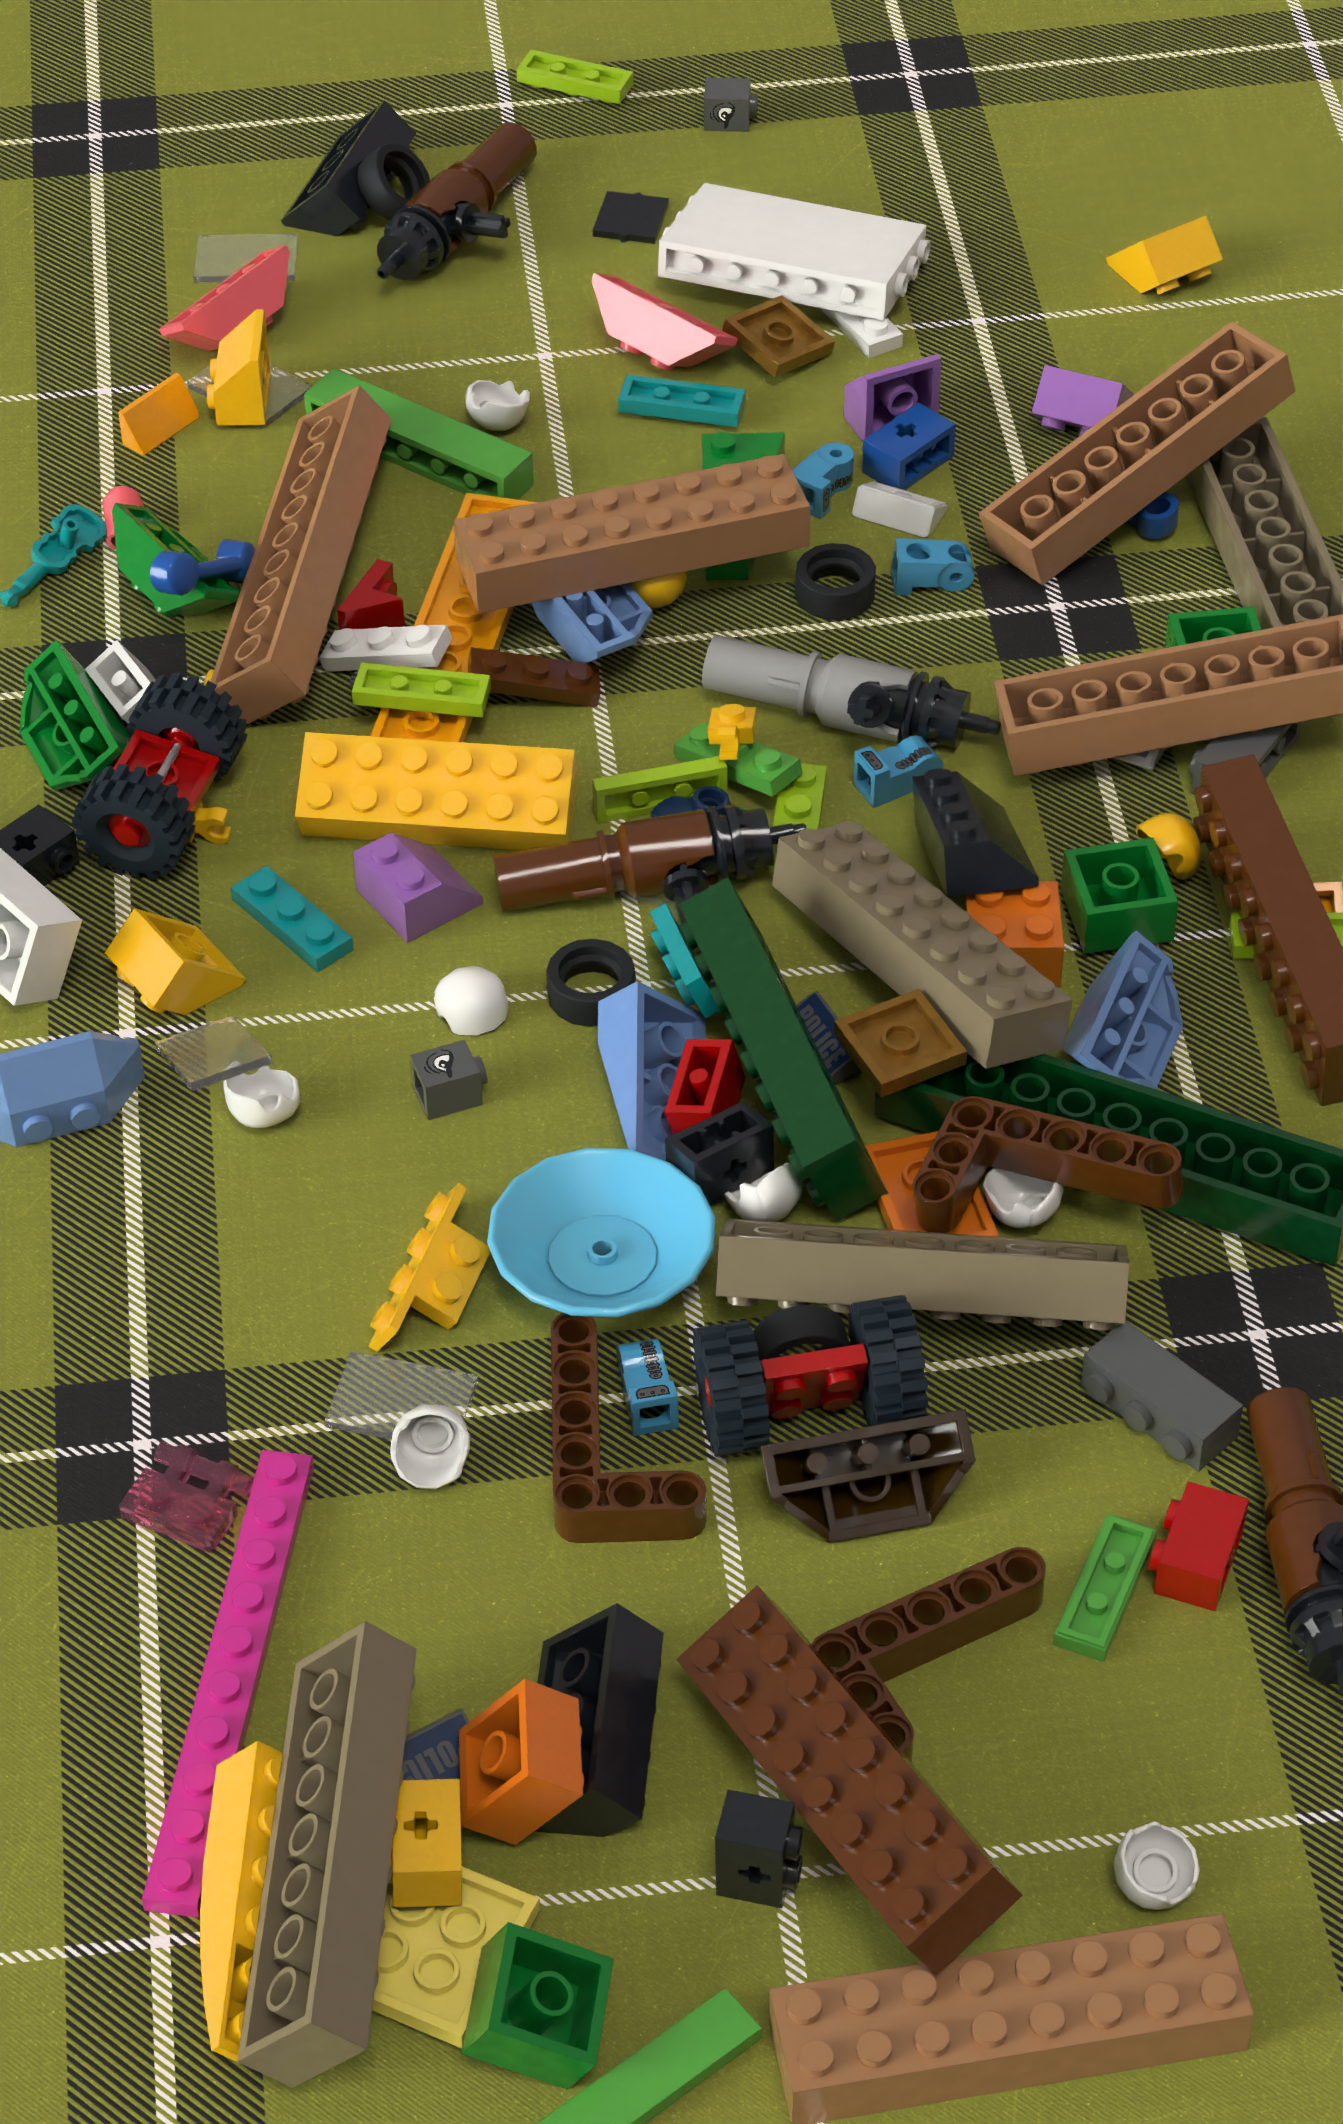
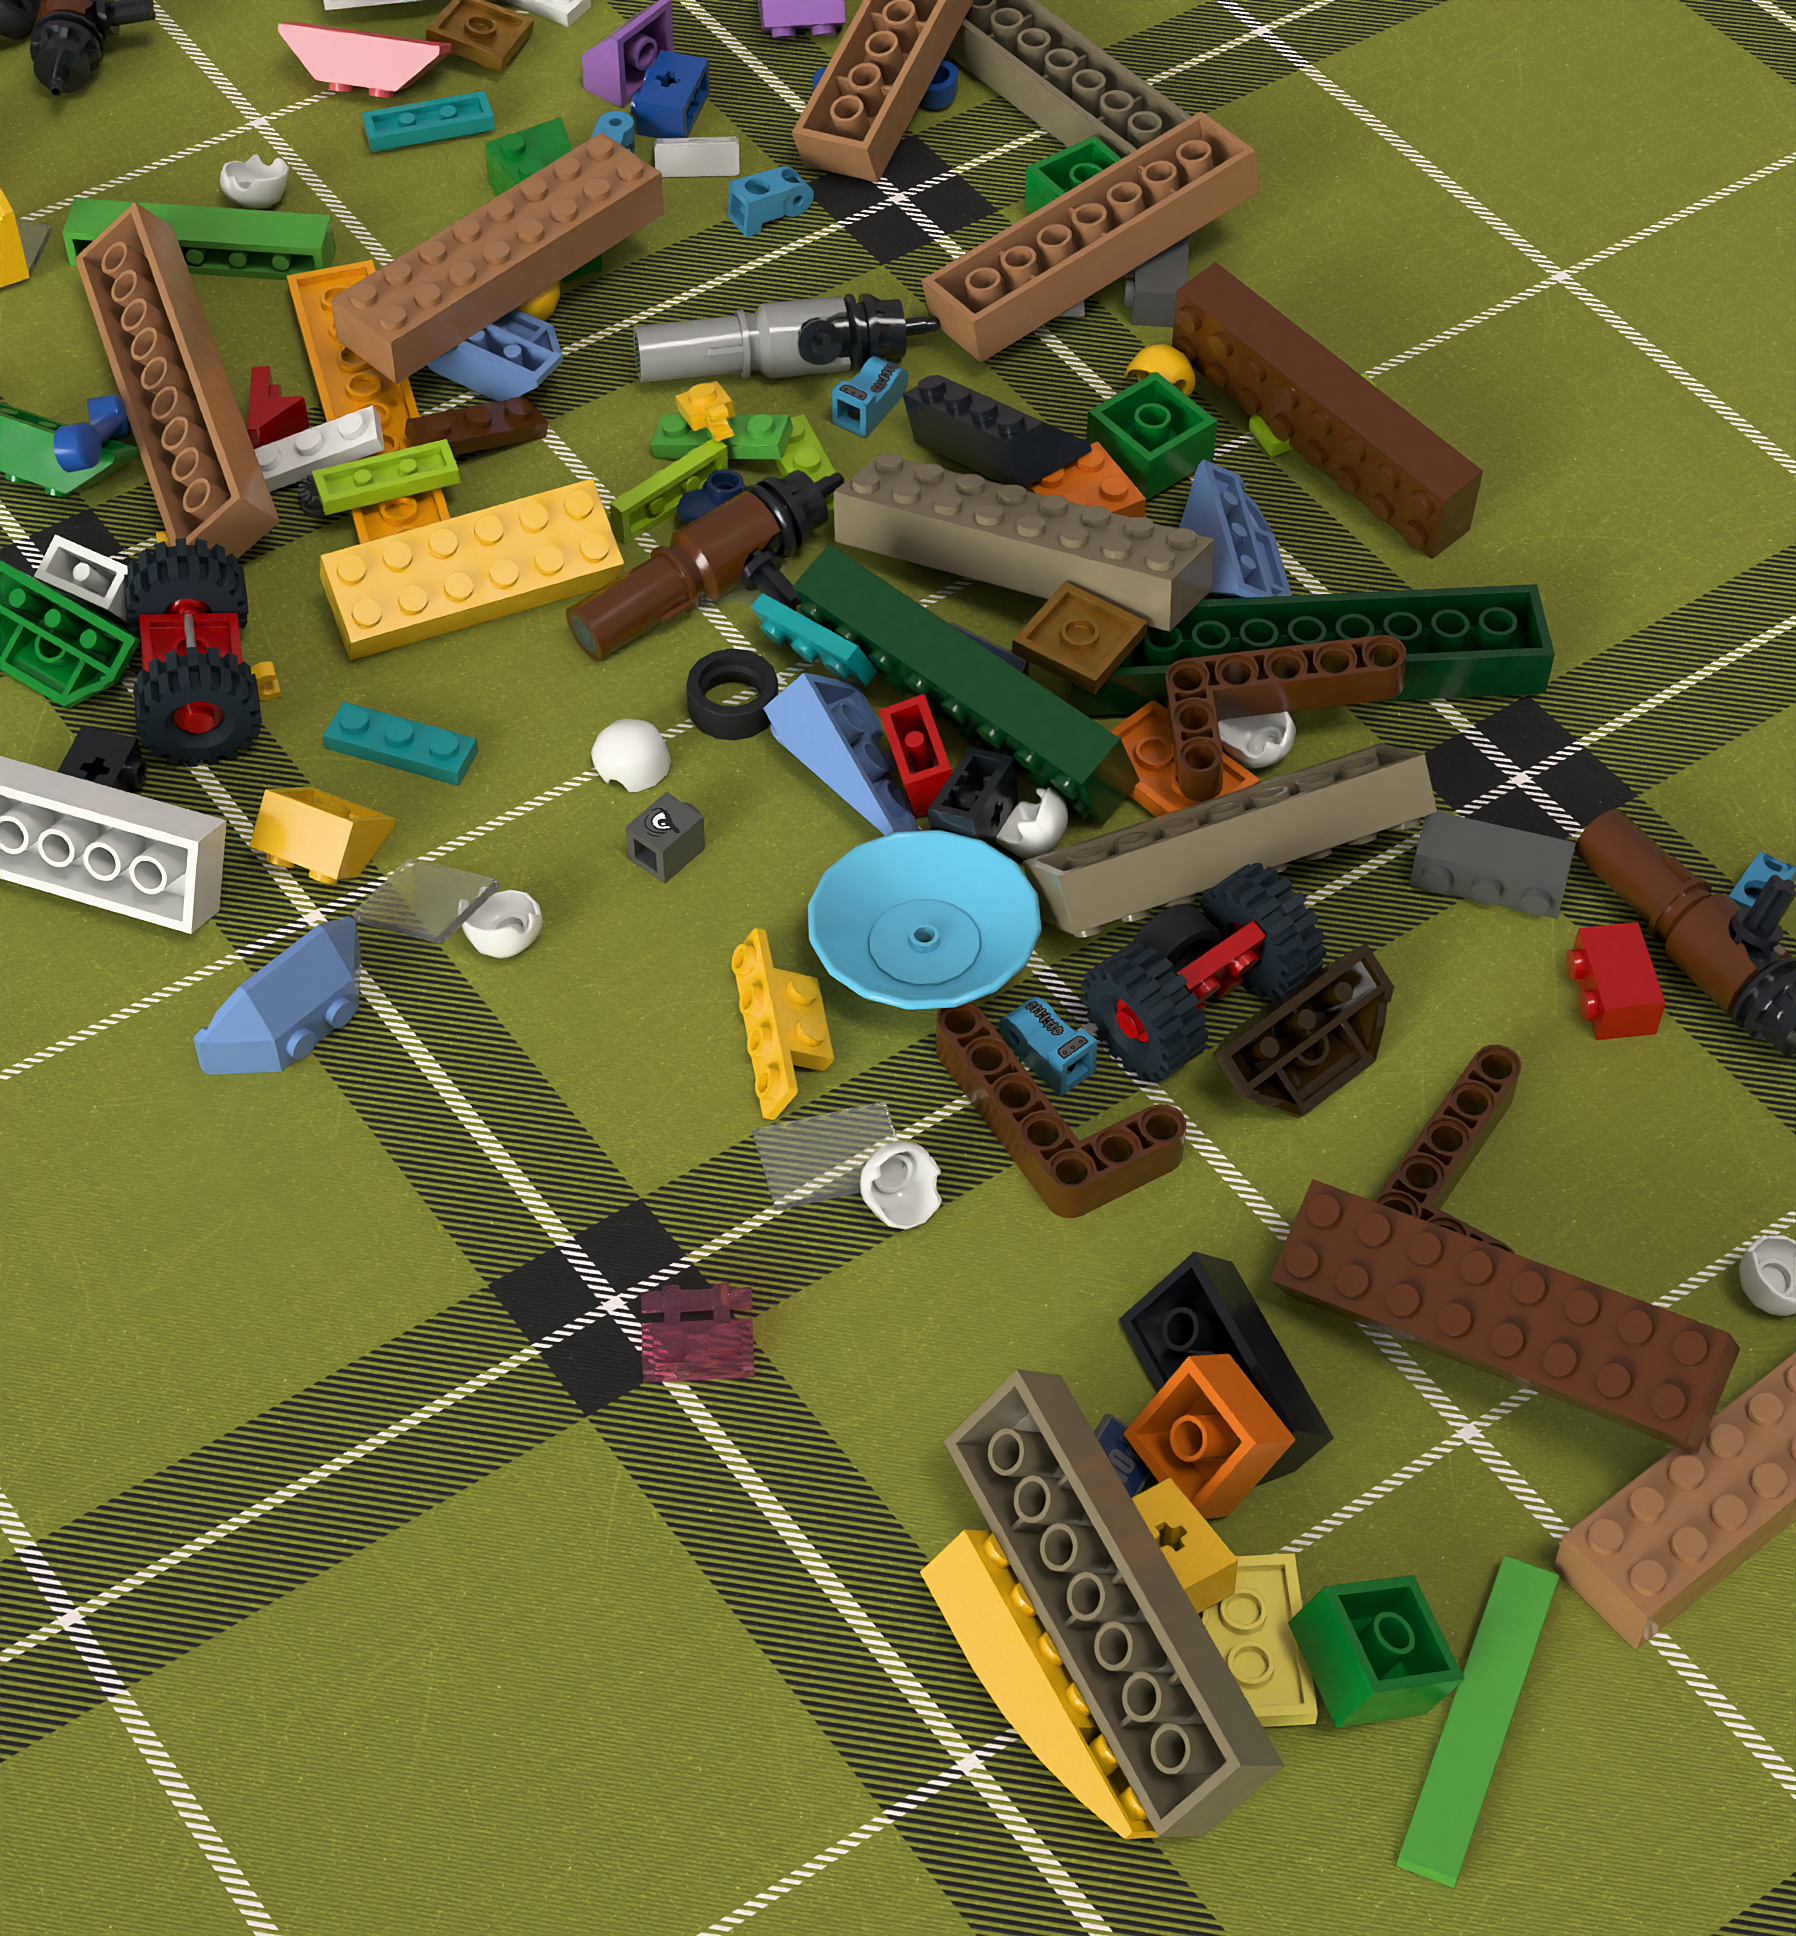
camera: 30 degrees left, 5 degrees up
(229, 1677) = (864, 1493): dark pink plate -> none
(411, 885) = (498, 670): medium lavender slope -> none
(757, 1849) = (1458, 1417): black brick -> none
(835, 602) = (692, 263): black tyre -> none
(1105, 1587) = (1558, 1053): bright green tile -> none

